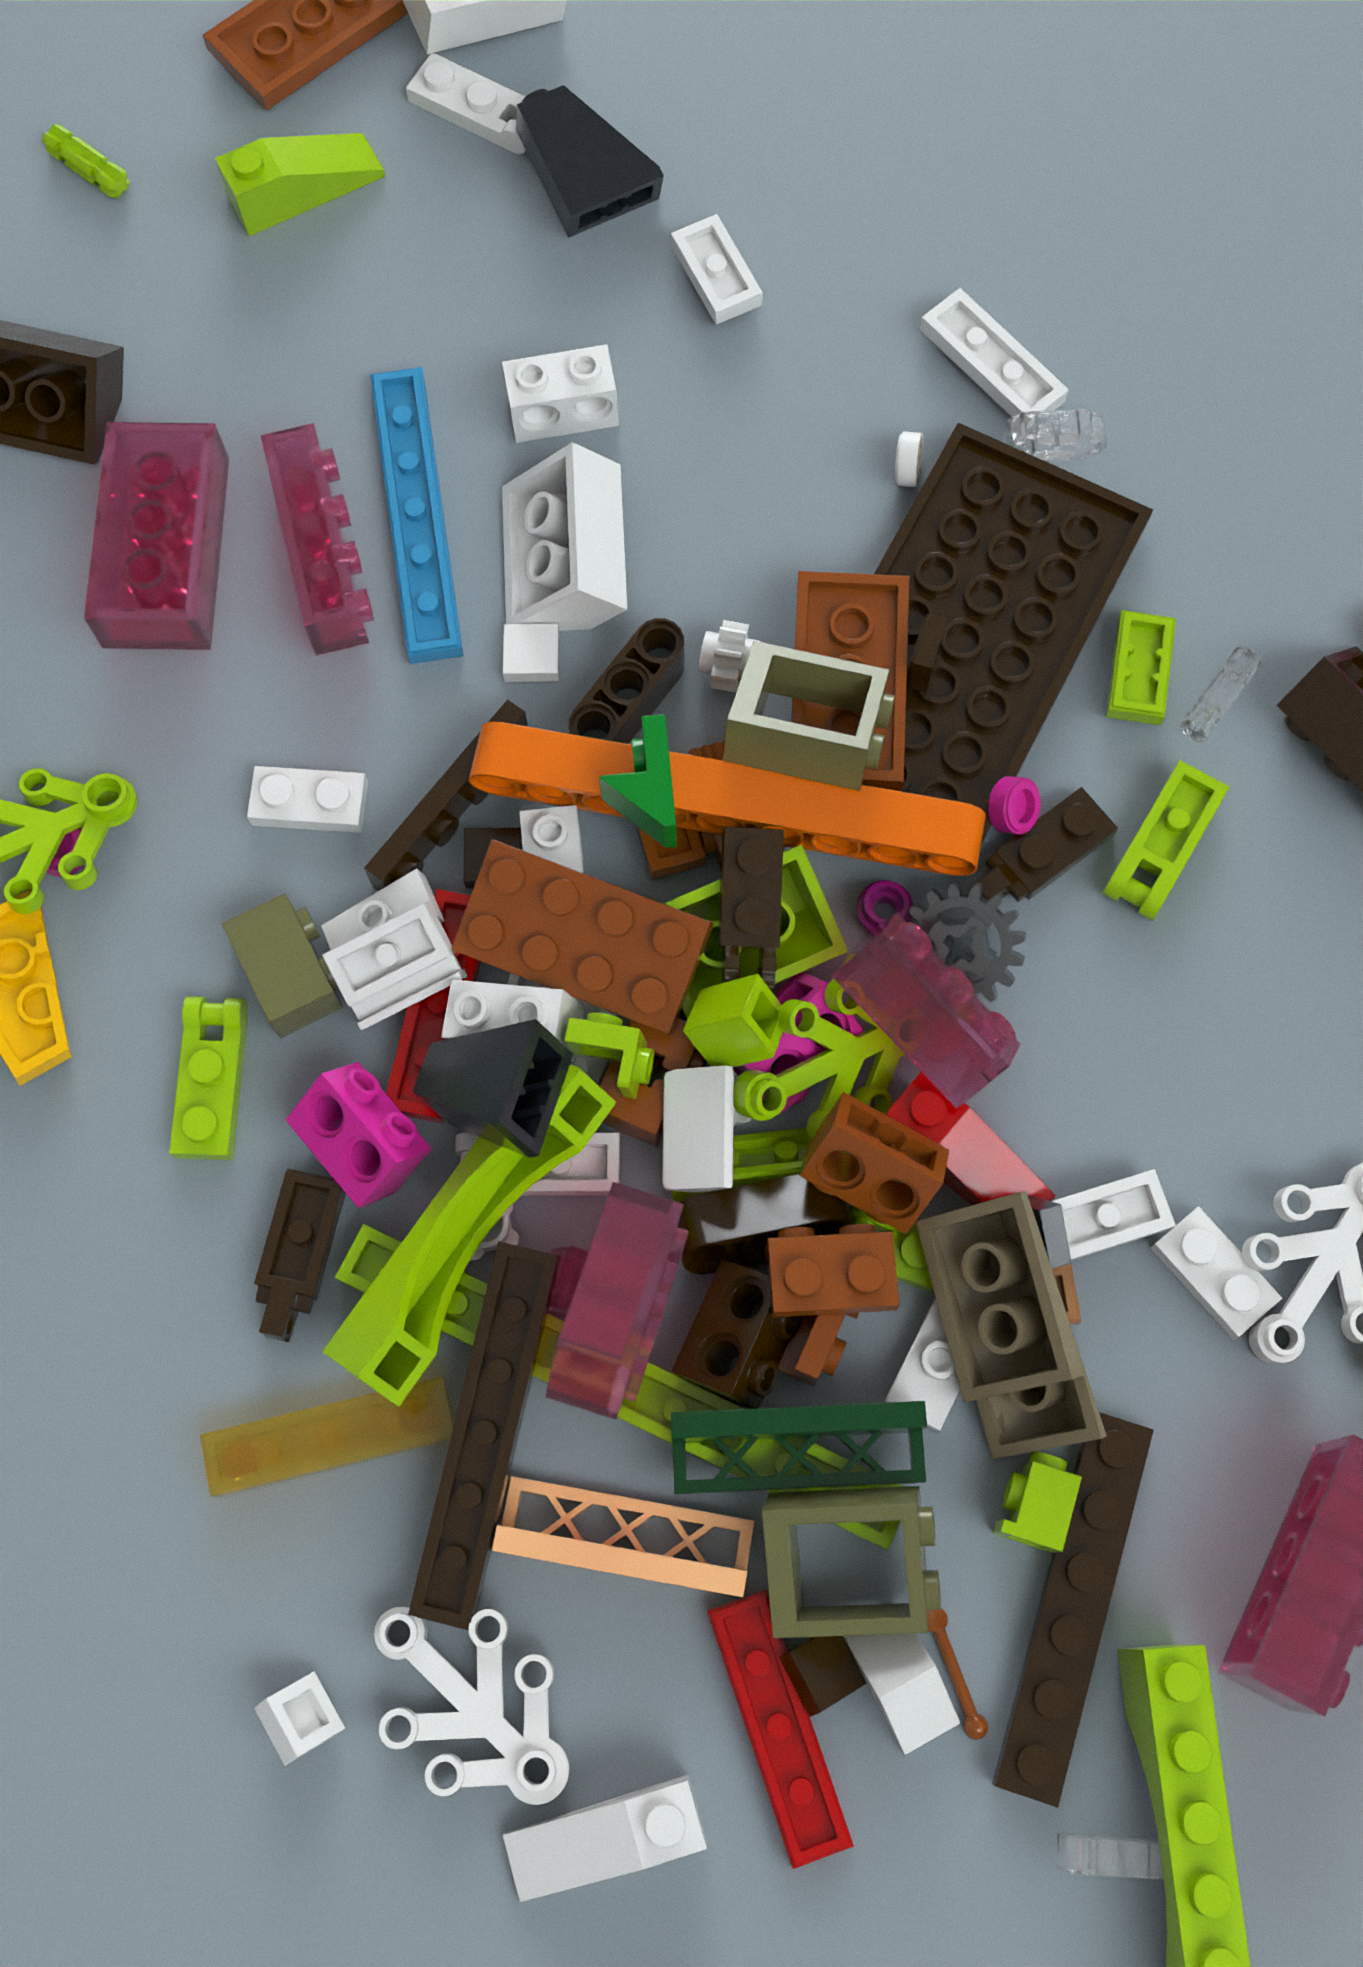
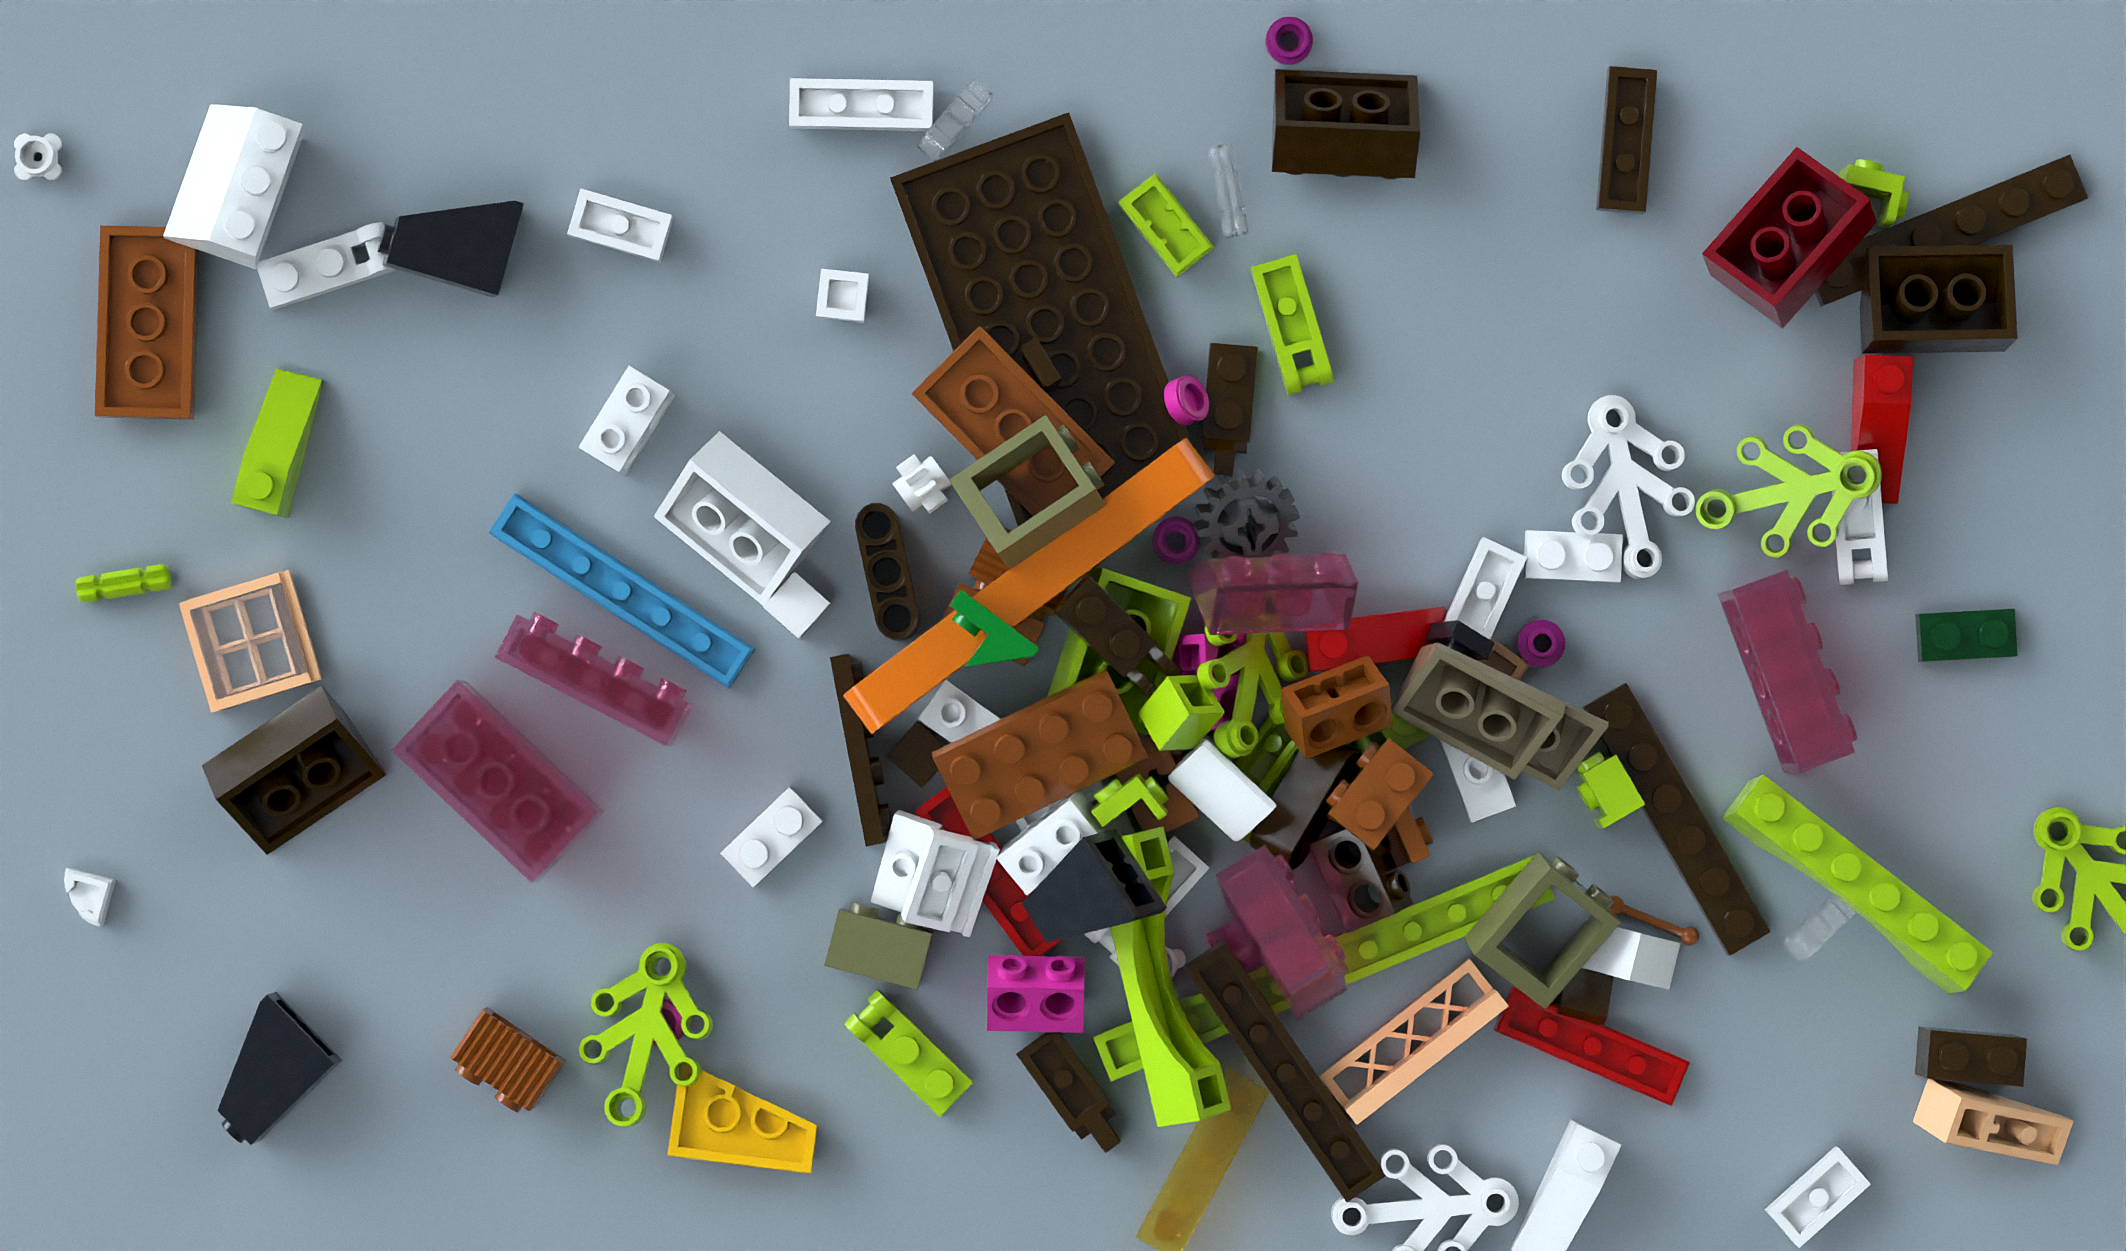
camera: 50 degrees left, 15 degrees up
(119, 282) = (250, 641): none -> clear piece
(799, 1423) = (1443, 887): dark green fence -> none
(825, 471) = (842, 295): none -> white plate
(909, 459) = (885, 233): white tile -> none
(1097, 1327) = (1530, 654): none -> magenta plate

